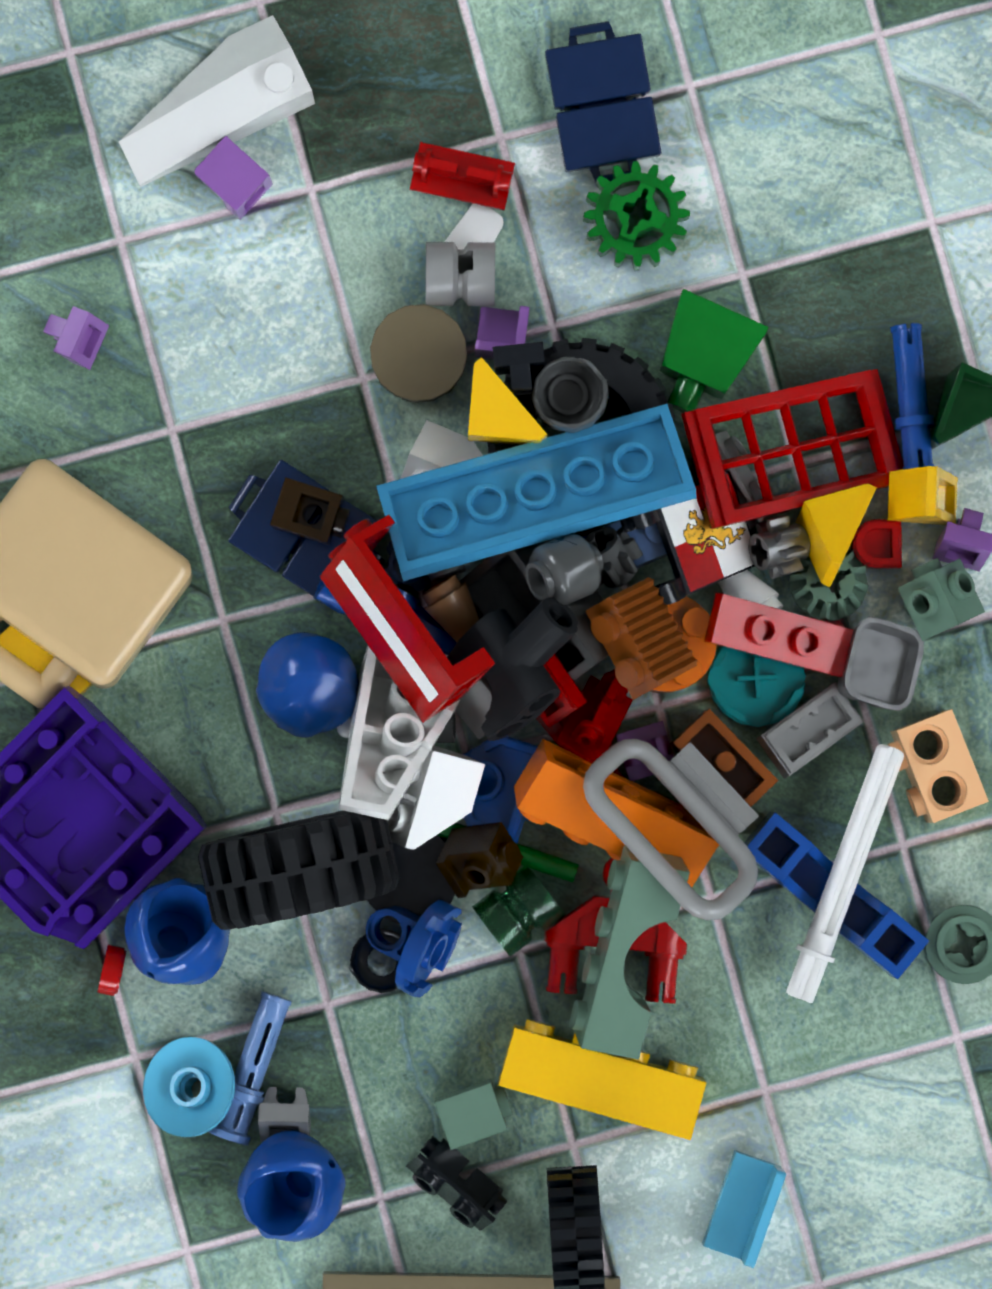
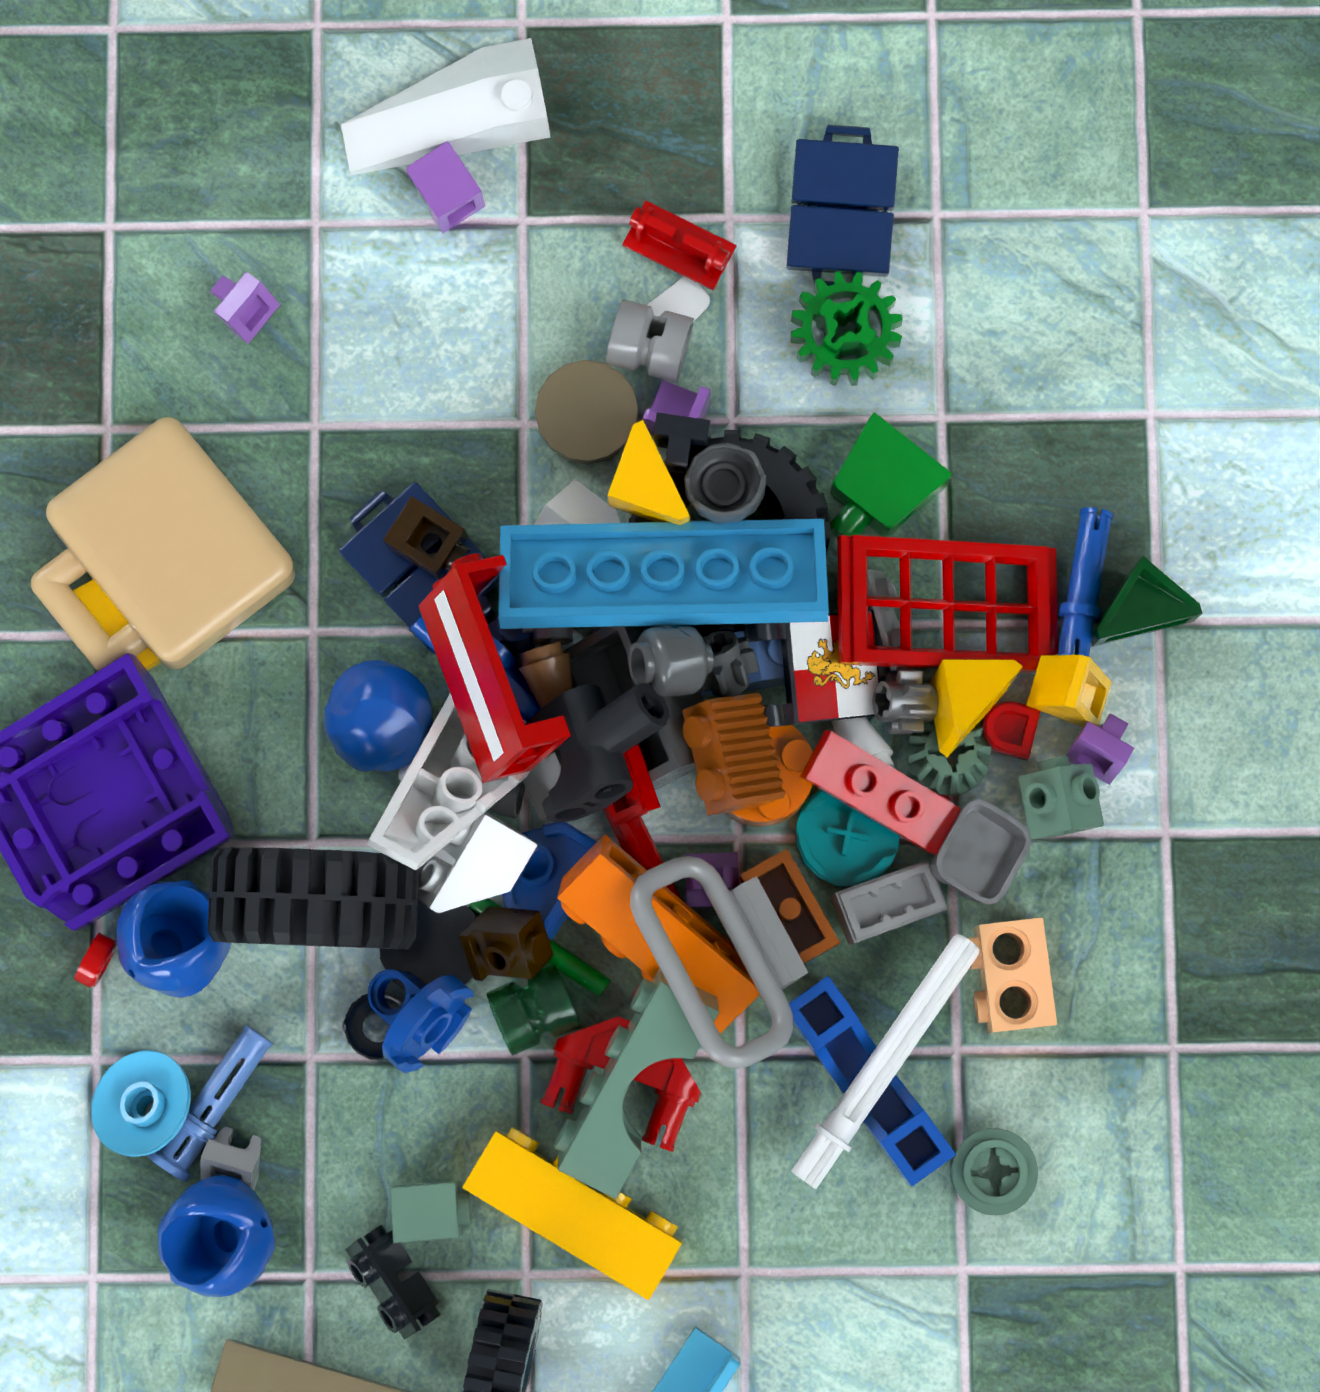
camera: 25 degrees right, 5 degrees down
(595, 723) = (667, 830): red hinge -> none

